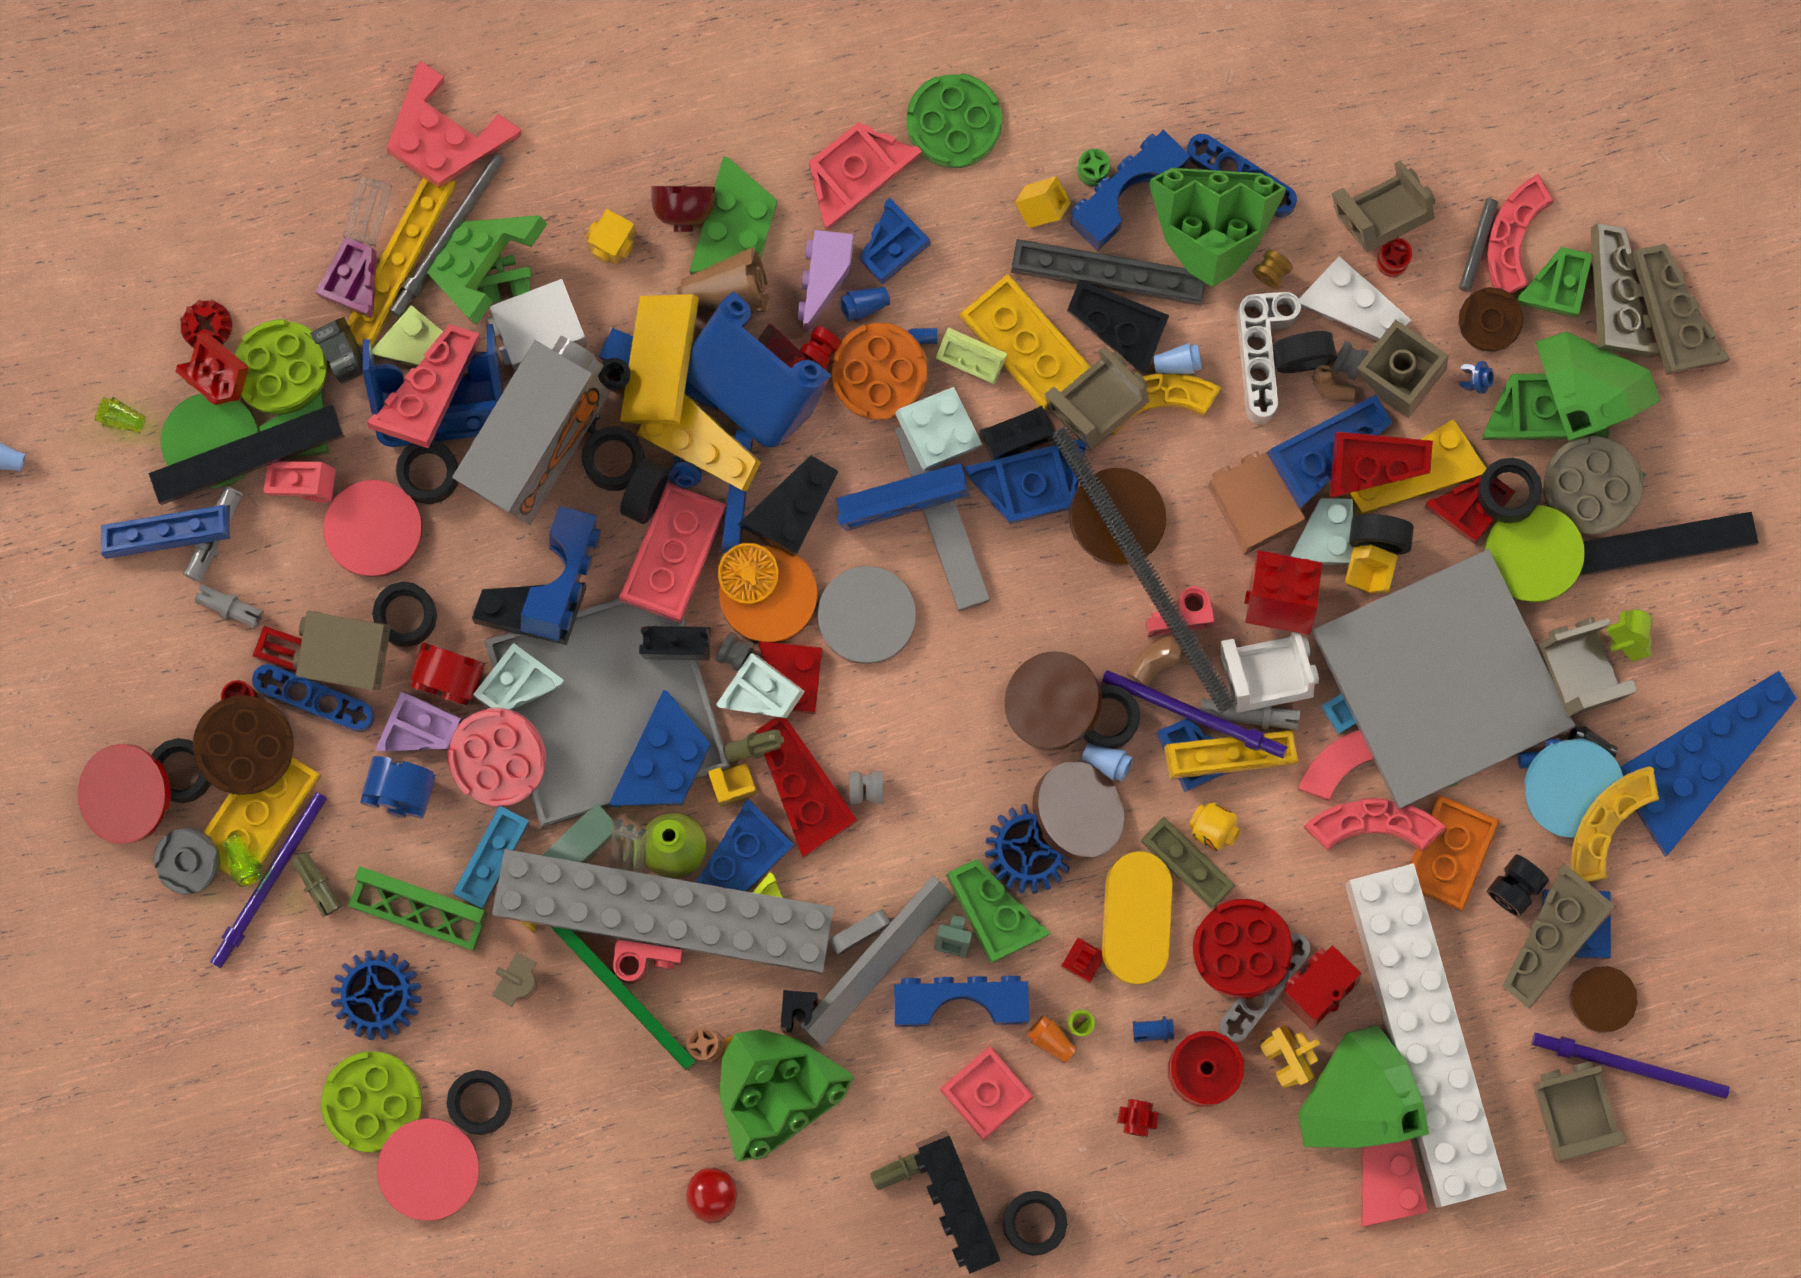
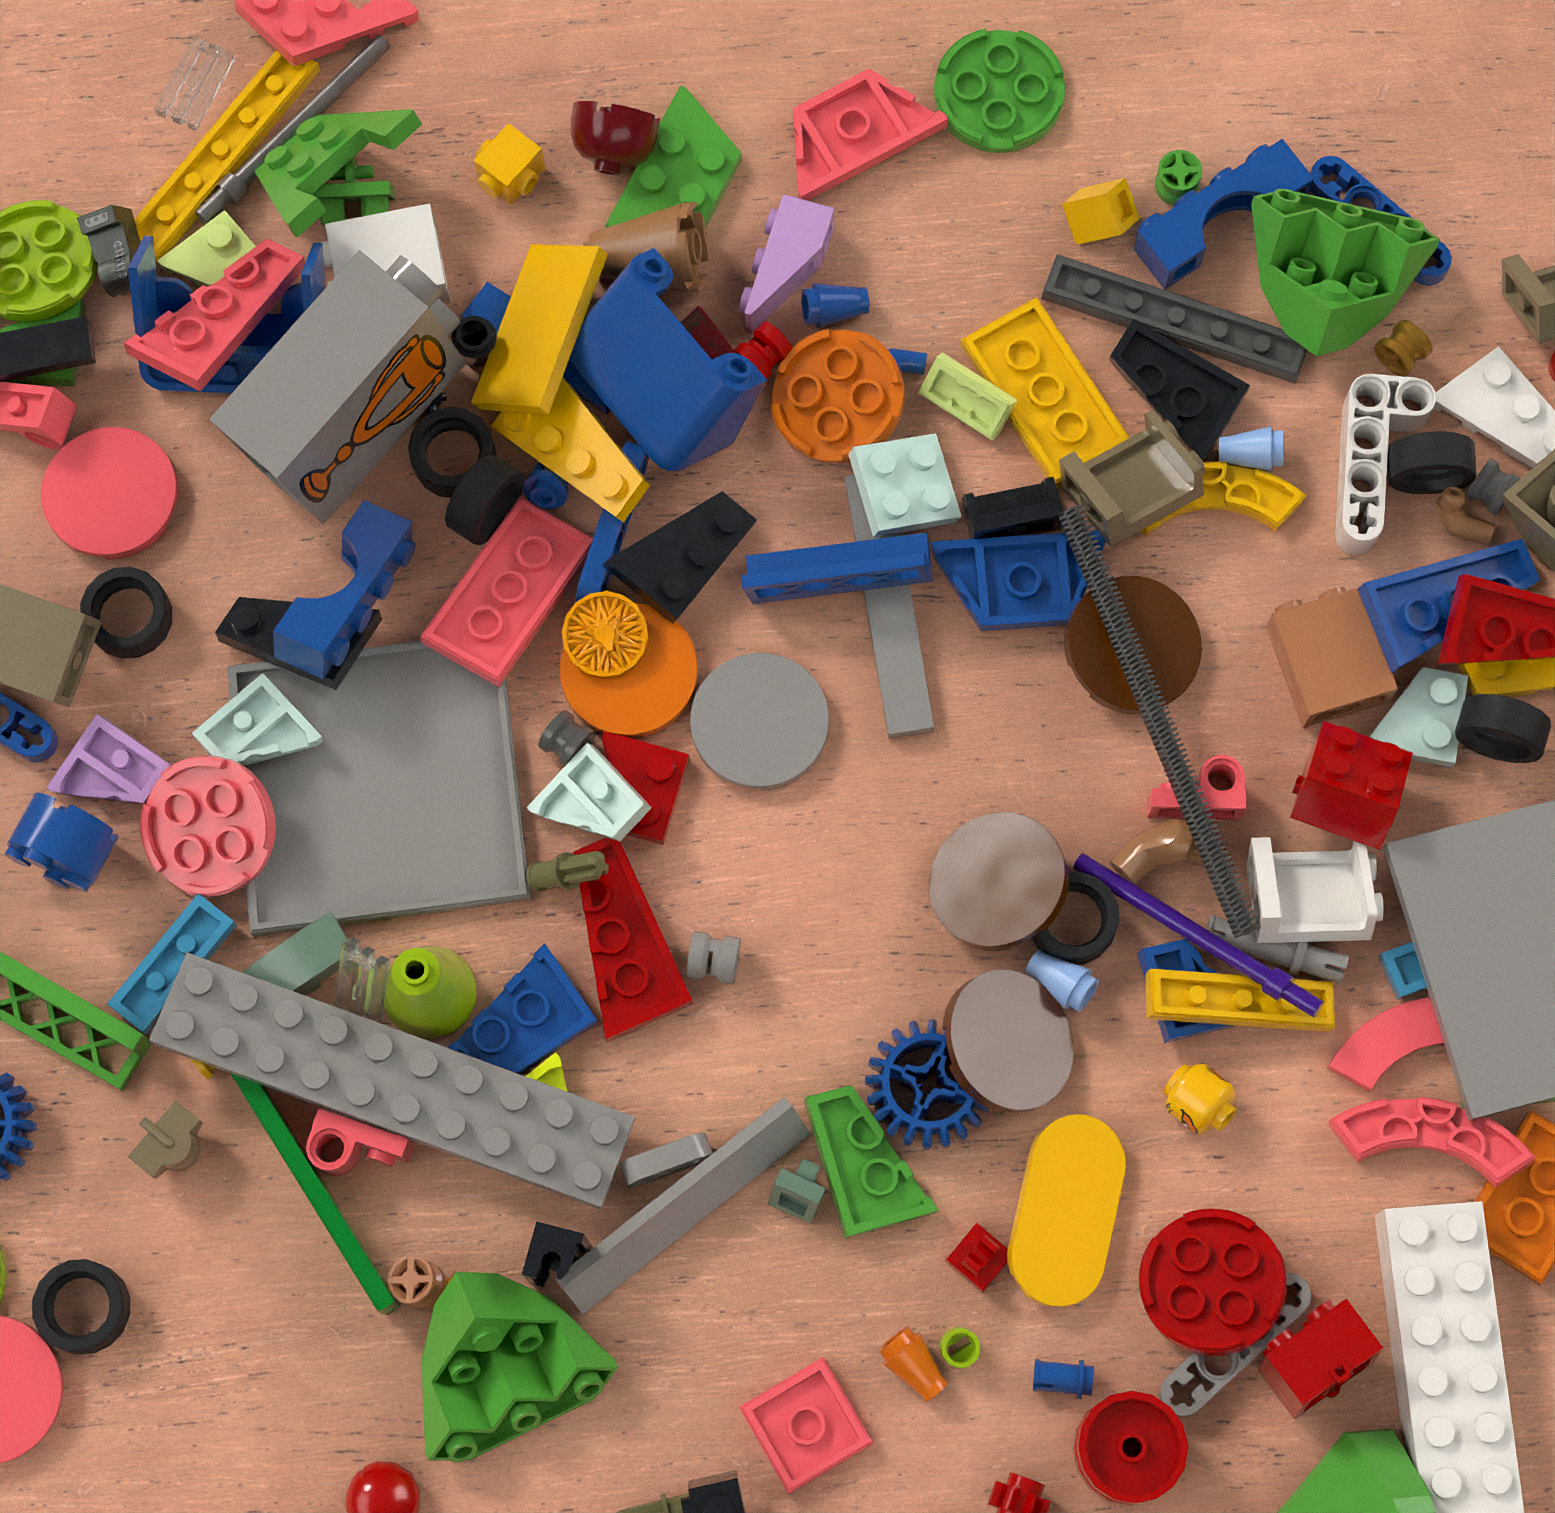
camera: 15 degrees right, 5 degrees down
(351, 278) = (152, 161): magenta wing -> none
(427, 496) = (171, 410): black tyre -> none
(447, 672) = (162, 699): red brick -> none
(663, 760) = (437, 870): blue wing -> none
(675, 643) = (486, 712): black hinge -> none
(732, 784) = (527, 921): yellow panel -> none
(893, 243) = (887, 233): blue wing -> none
(1004, 1000) = (731, 1276): blue arch -> none
(1187, 863) = (1153, 1145): olive tile -> none
(1298, 1068) = (1250, 1430): yellow hips -> none
(1371, 569) = (1480, 775): yellow panel -> none

